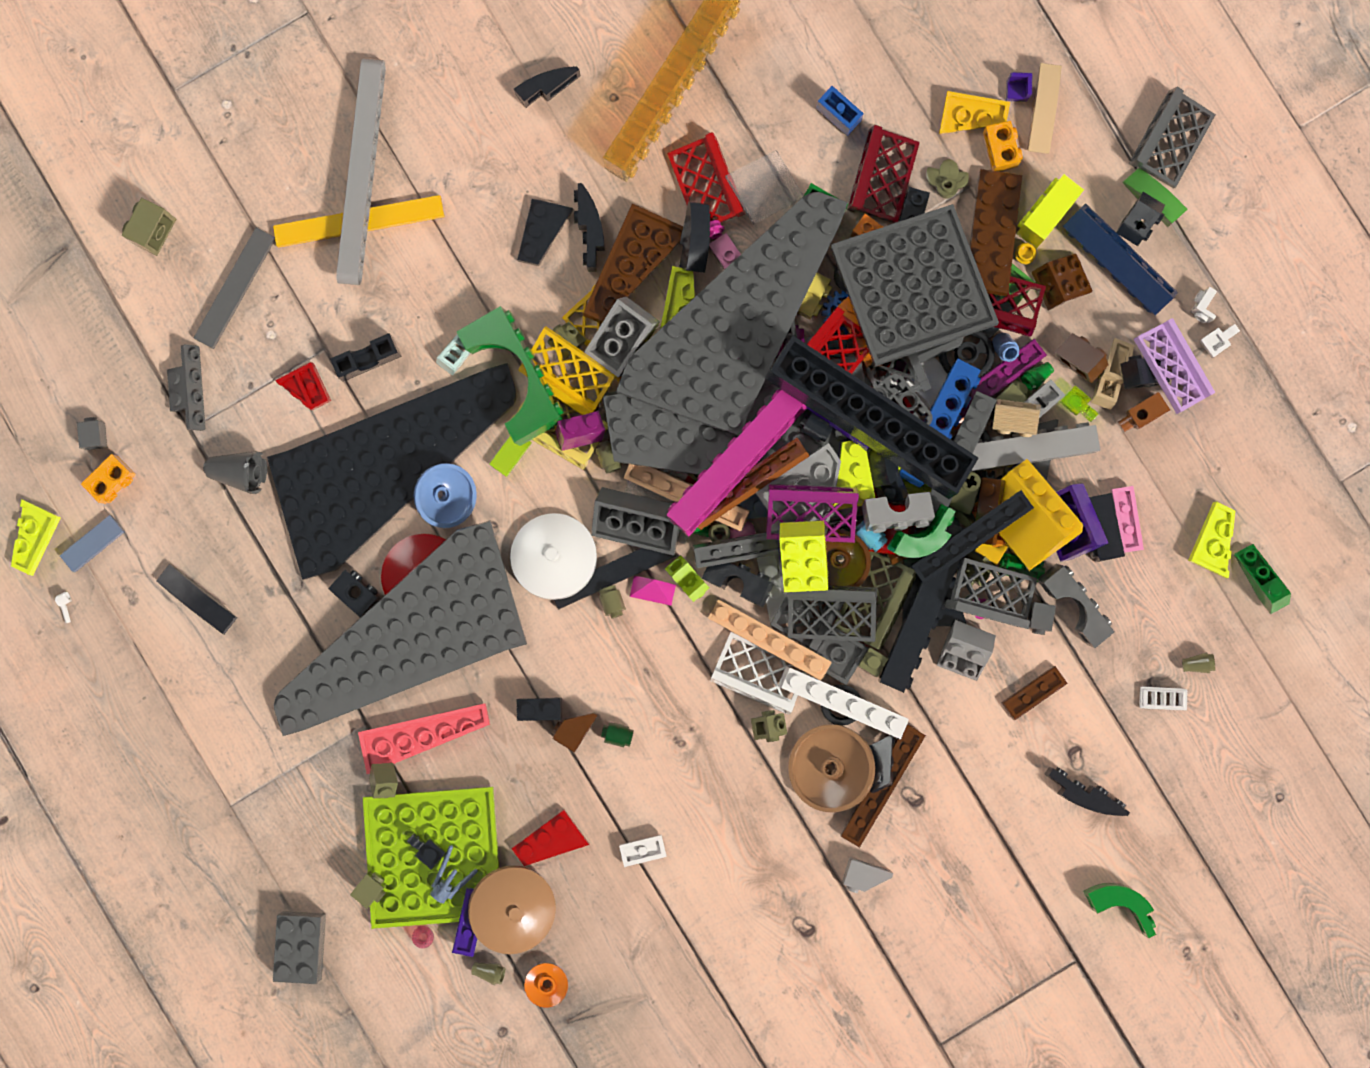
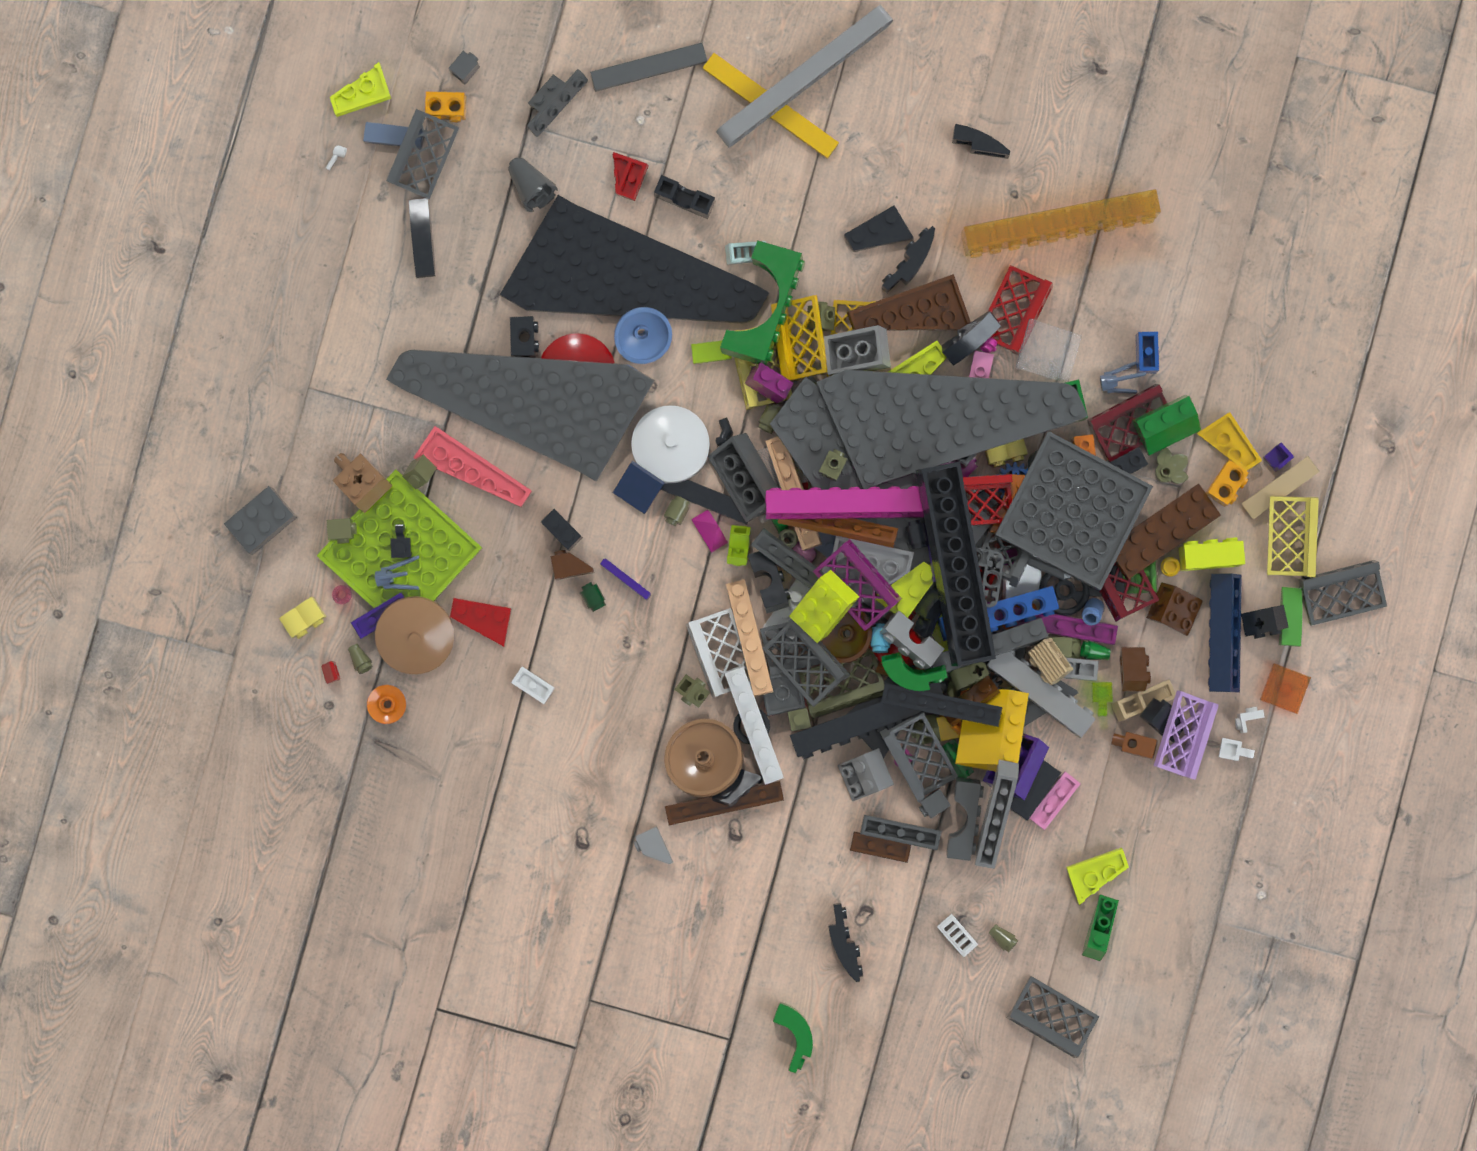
camera: 50 degrees right, 0 degrees up
(110, 541) = (406, 148): none -> dark grey fence
(345, 835) = (361, 481): none -> medium nougat brick
(411, 987) = (302, 618): none -> light yellow brick
(477, 1005) = (330, 672): none -> red slope
(564, 614) = (638, 487): none -> dark blue tile
(586, 502) = (726, 432): none -> black arm
(629, 694) = (625, 579): none -> dark purple tile
(696, 441) = (833, 465): none -> olive brick
(833, 162) = (1109, 380): none -> sand blue plant
(911, 148) = (1167, 424): none -> green slope
(1038, 666) = (900, 832): none -> dark grey brick
(1101, 575) = (996, 814): none -> light grey brick
(1103, 118) = (1309, 532): none -> light yellow fence
(1206, 254) = (1285, 688): none -> clear orange plate
(1300, 702) = (1046, 1033): none -> dark grey fence

